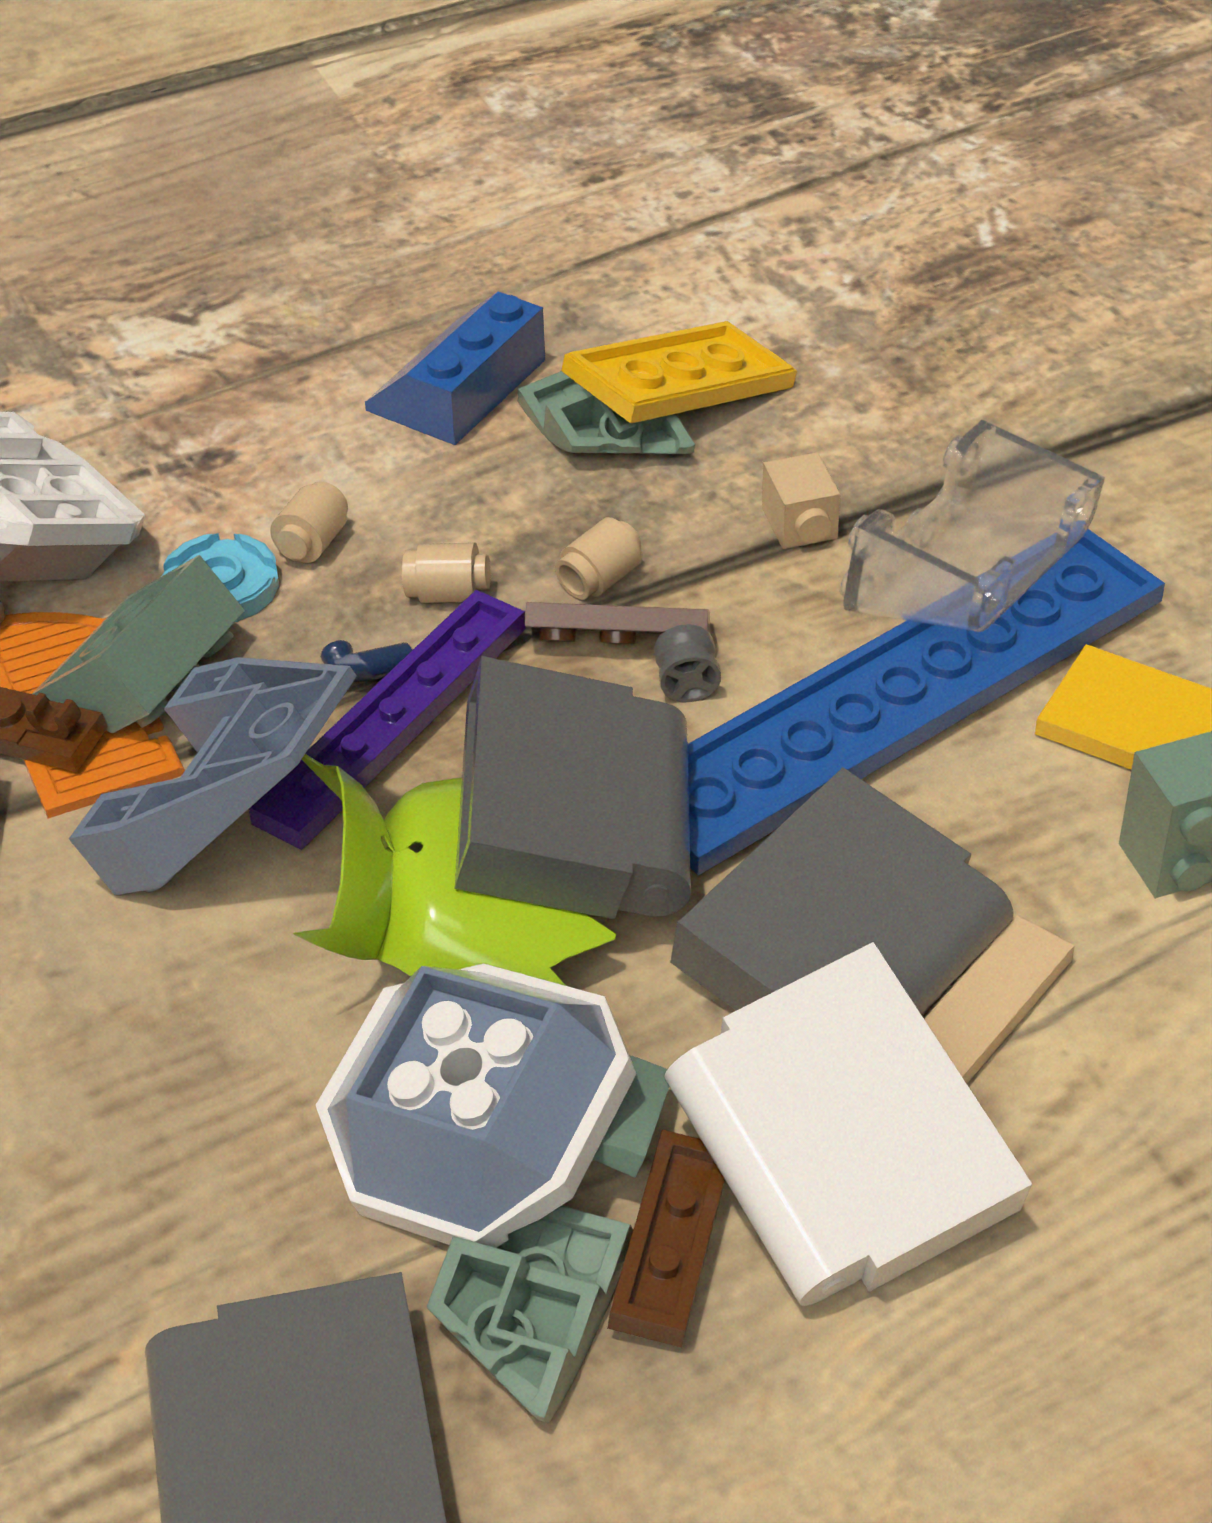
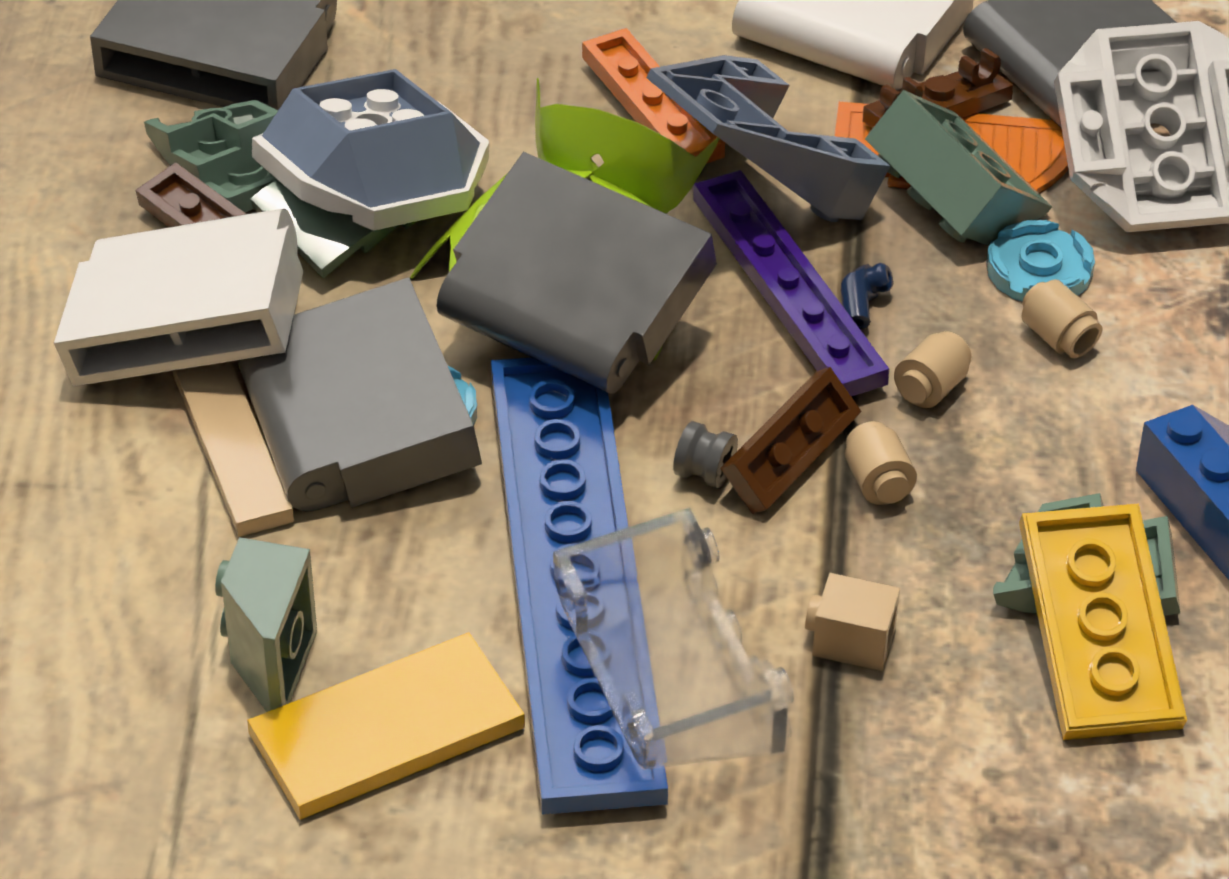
camera: 120 degrees right, 0 degrees up
(151, 951) = (623, 69): none -> orange plate

